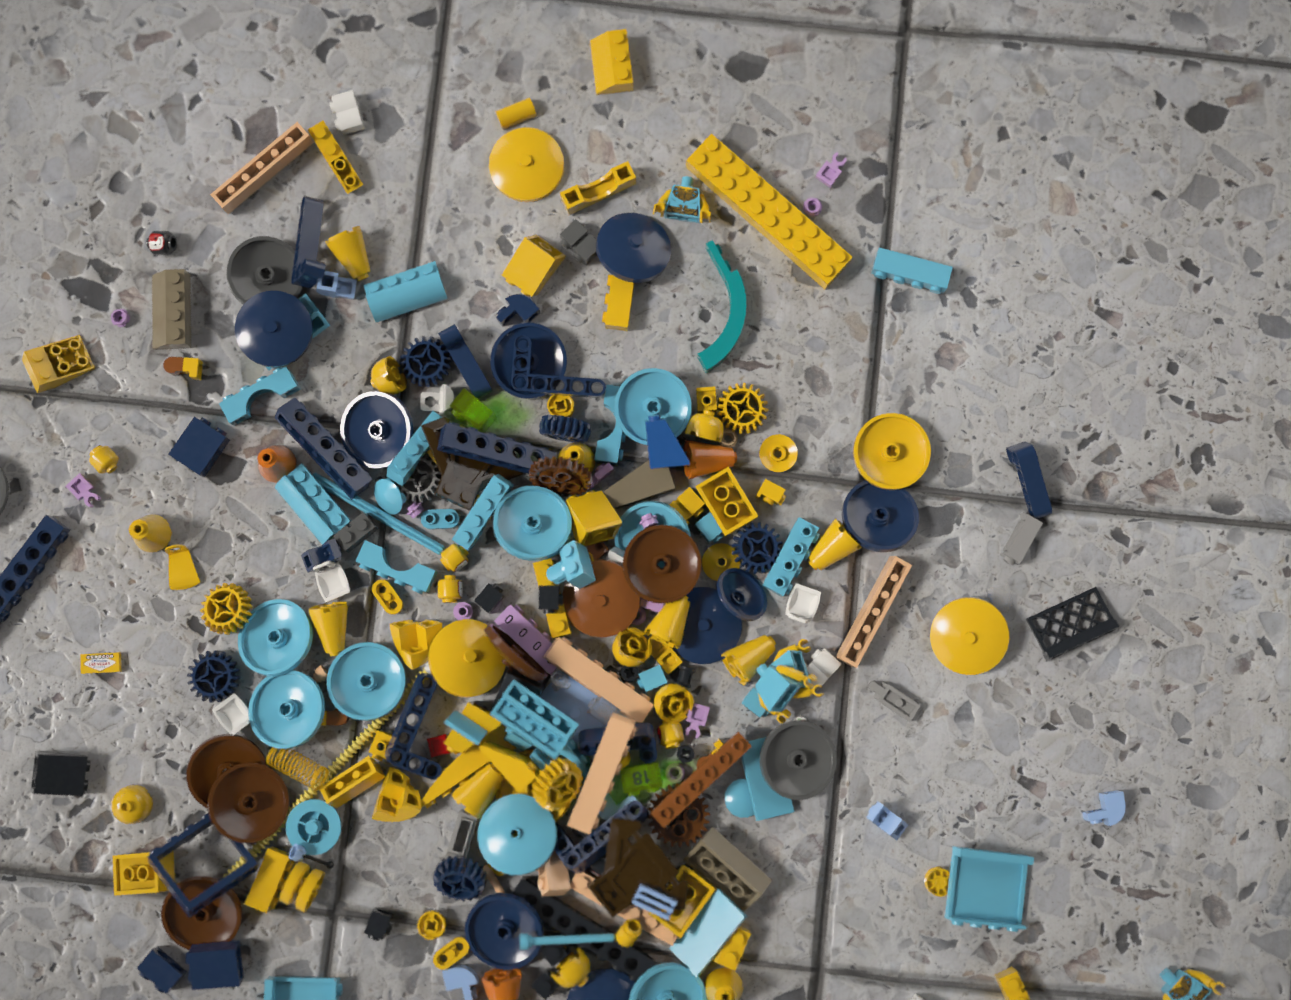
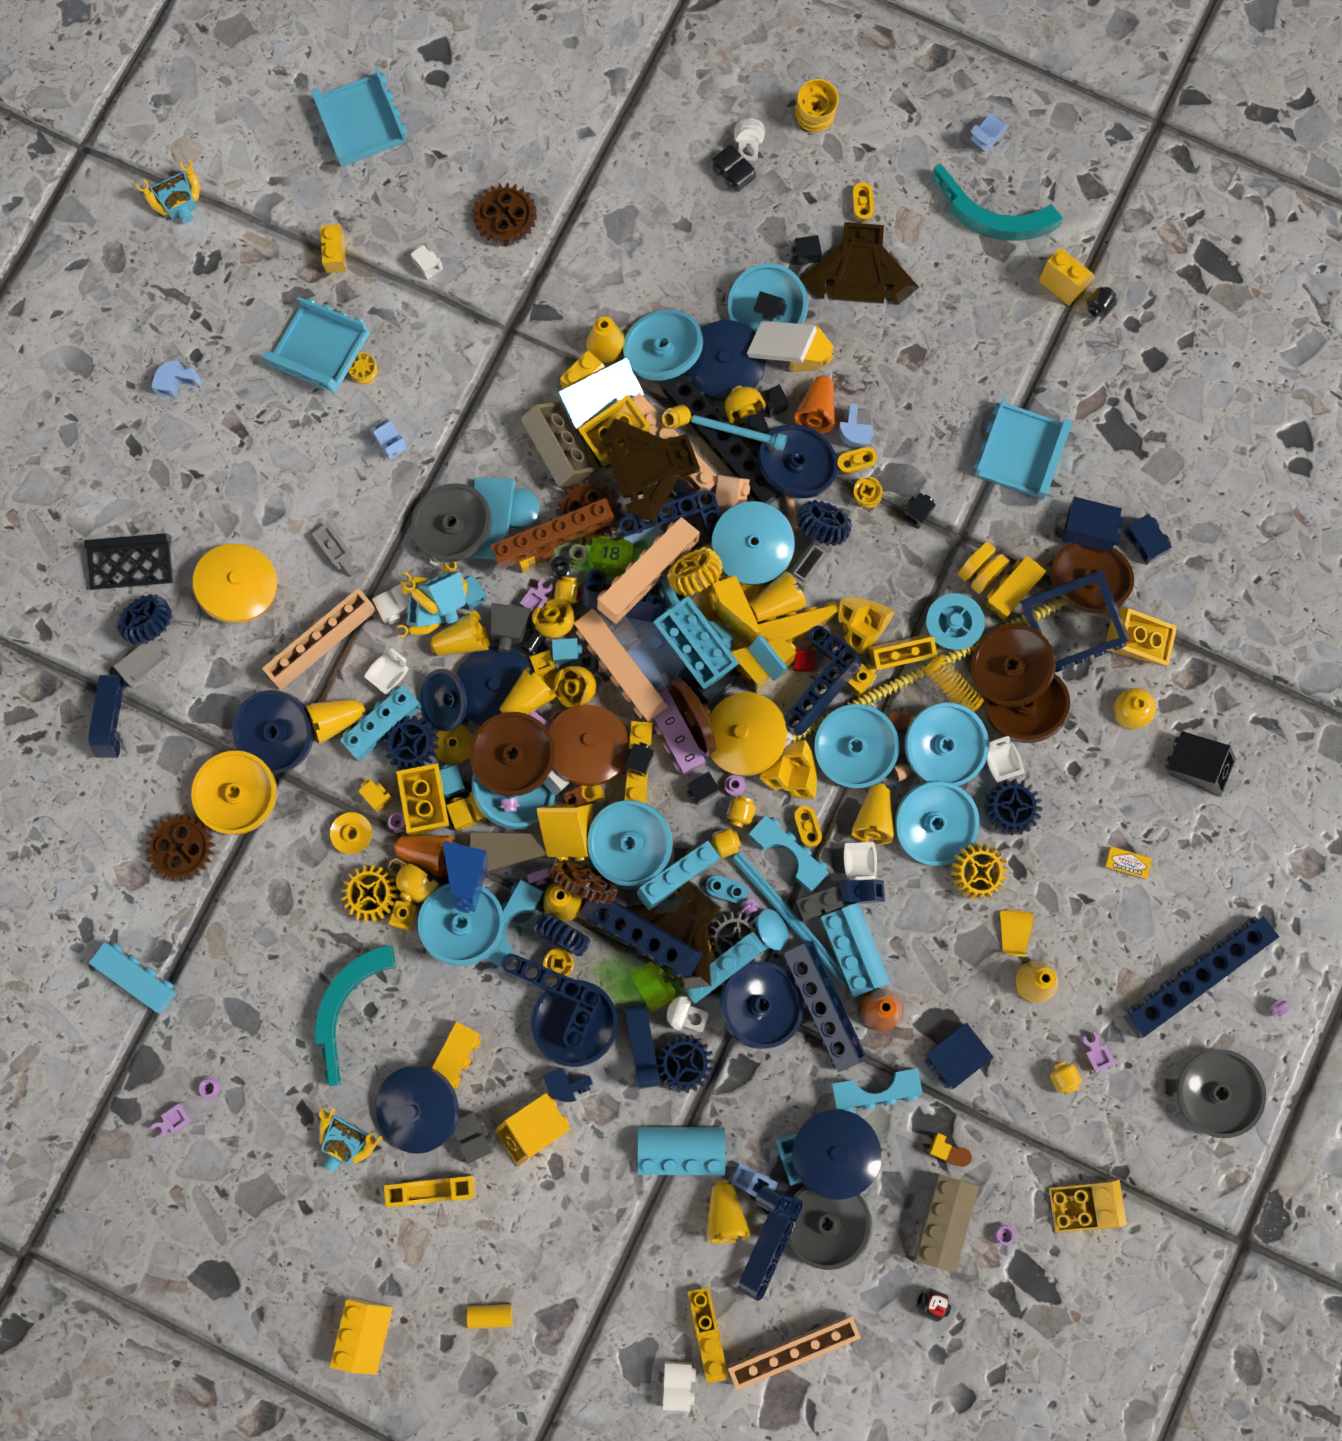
camera: 160 degrees left, 5 degrees down
(298, 853) = (977, 599): hinge -> none
(387, 376) = (732, 1059): yellow cylinder -> none
(526, 164) = (499, 1251): yellow dish -> none
(540, 758) = (705, 605): medium azure tile -> none
(574, 566) = (602, 782): medium azure brick -> none
(666, 915) = (630, 421): light blue tile -> none
(711, 683) = (509, 625): none -> dark grey torso
(746, 473) = (392, 822): none -> lavender plate
(768, 211) = (257, 1099): yellow brick -> none
(927, 375) = (164, 859): none -> reddish brown gear
(1034, 573) = (144, 619): none -> dark blue gear

